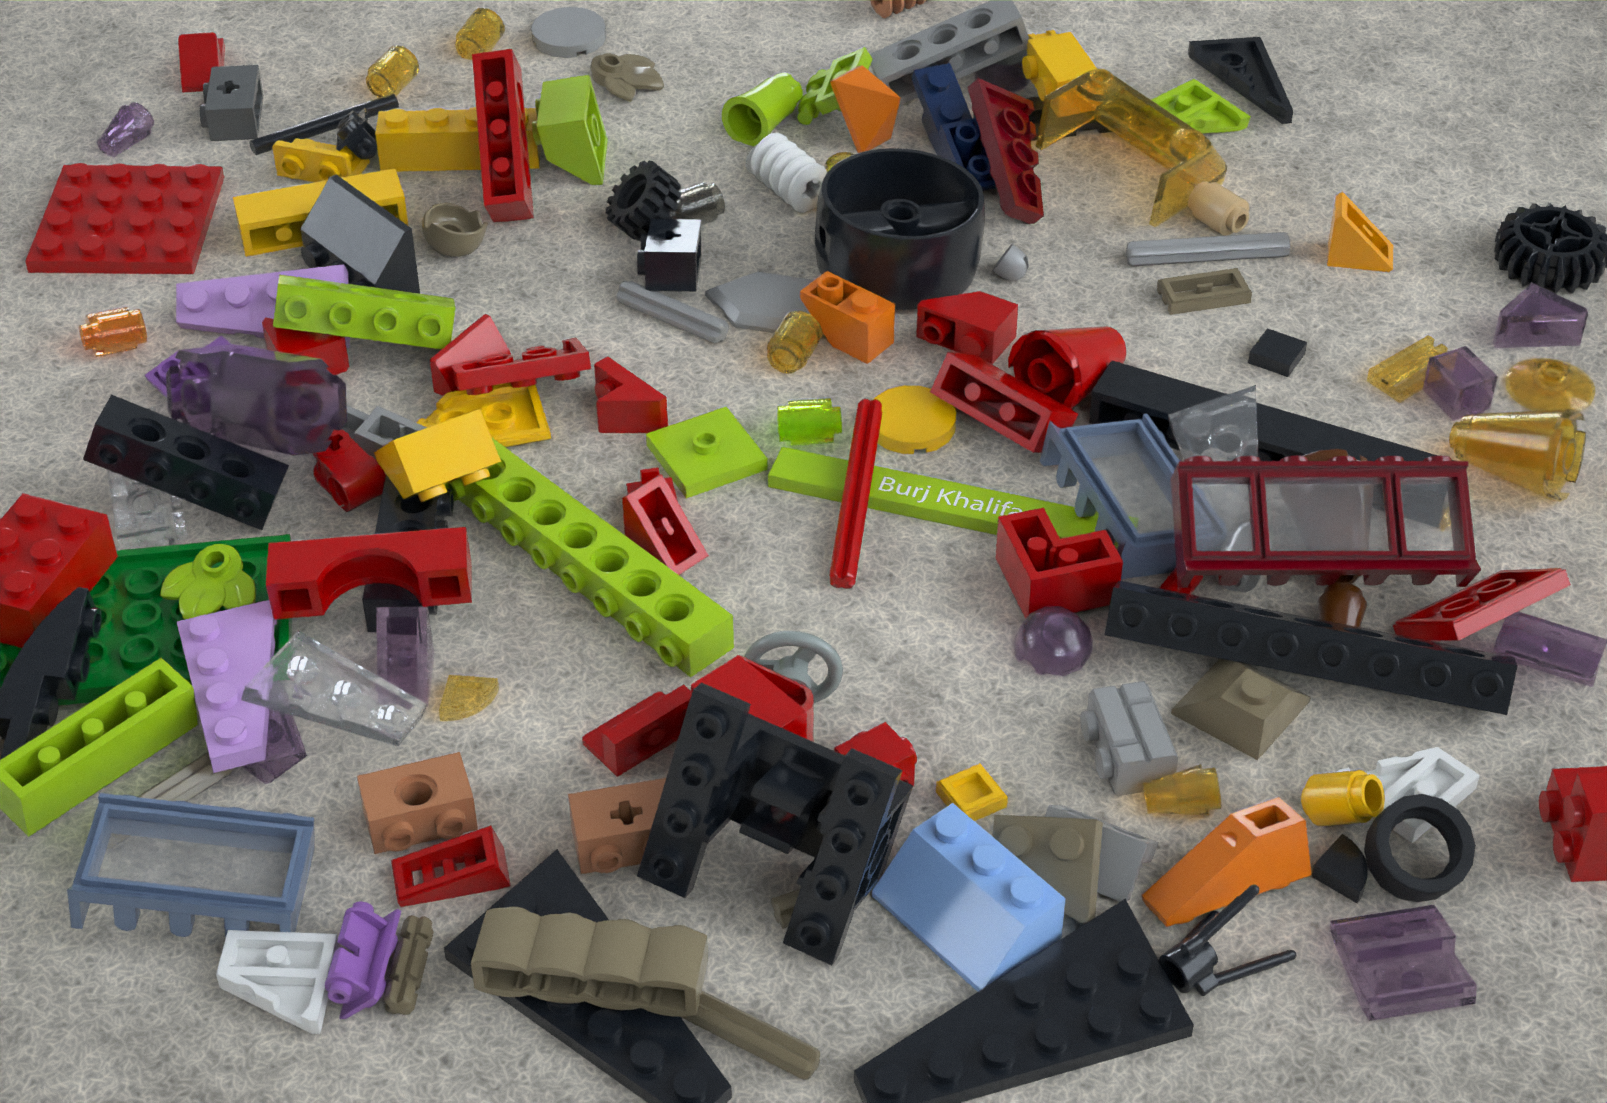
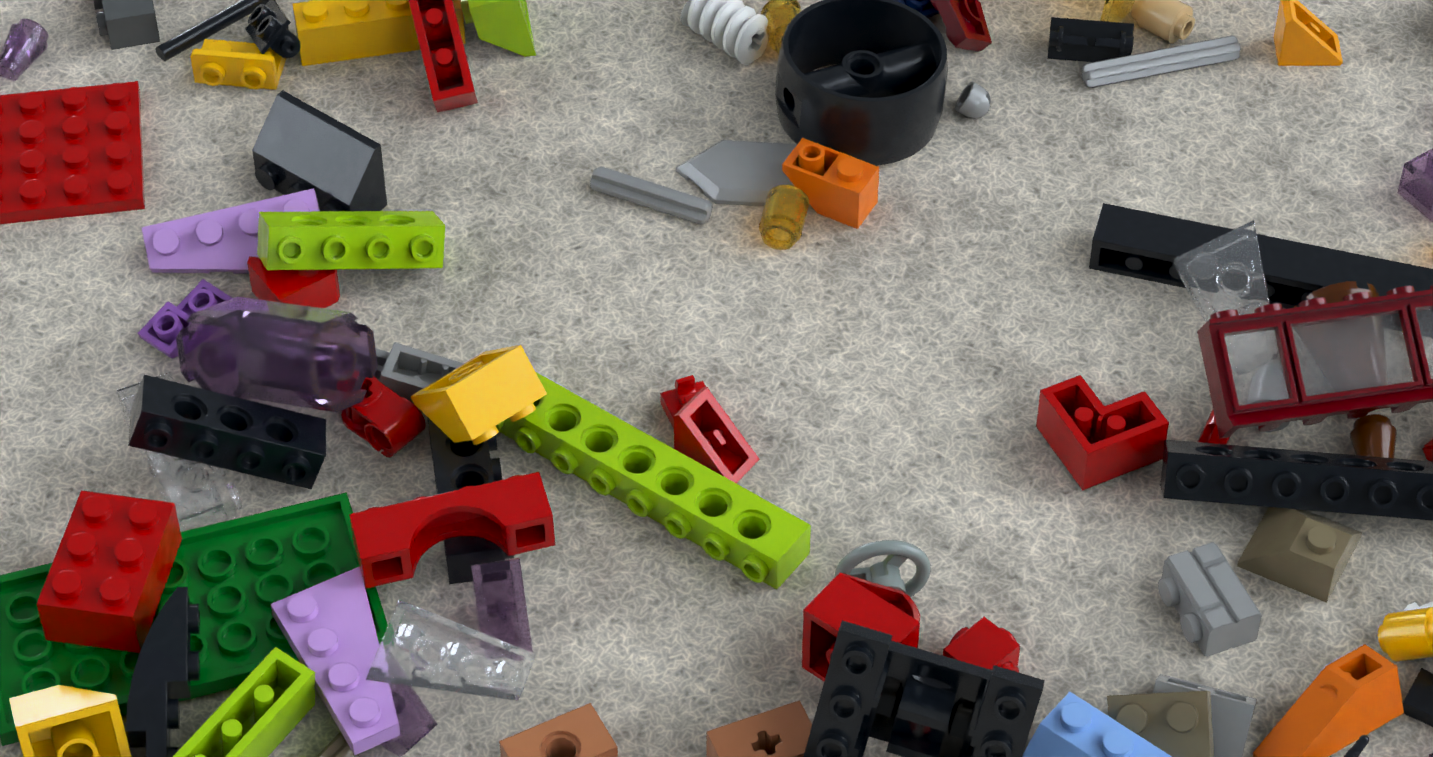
camera: 10 degrees left, 5 degrees up
(113, 331) = (89, 287): clear orange brick -> none
(207, 589) = (289, 565): lime plate -> none
(275, 217) = (227, 132): yellow brick -> none
(453, 229) = (404, 129): dark tan hair -> none
(466, 694) = (568, 638): clear yellow tile -> none
(474, 343) = (464, 276): slope -> none
(480, 375) = (537, 273): red wing -> none
(510, 413) = (503, 324): yellow tile -> none
(626, 401) = (637, 302): red slope -> none
(639, 730) = (748, 651): red panel -> none
(642, 196) = (576, 71): black tyre -> none
(671, 255) = (637, 134): black brick -> none
(700, 203) = (640, 74): clear smoke brick -> none
(706, 452) = (727, 347): lime plate -> none
(808, 422) = (821, 303): clear neon green brick -> none
(856, 494) = (890, 377): red axle -> none
(915, 420) = (918, 286): yellow tile -> none
(919, 495) = (965, 370): lime tile -> none
(969, 323) = (950, 176): red slope -> none
(972, 792) = (1073, 672): yellow tile -> none
(999, 400) = (1008, 261): red brick -> none
(1054, 641) = (1113, 508): clear purple hair -> none
(1066, 360) = (1056, 215): red cone -> none
(1127, 479) = (1150, 332): sand blue window -> none
(1138, 221) = (1089, 39): none -> black hinge
(1184, 792) = (1270, 646): clear yellow cone -> none
(1206, 294) = (1170, 114): dark tan tile -> none
(1277, 352) = (1253, 169): black tile -> none
(1405, 365) = (1362, 192): clear yellow tile -> none

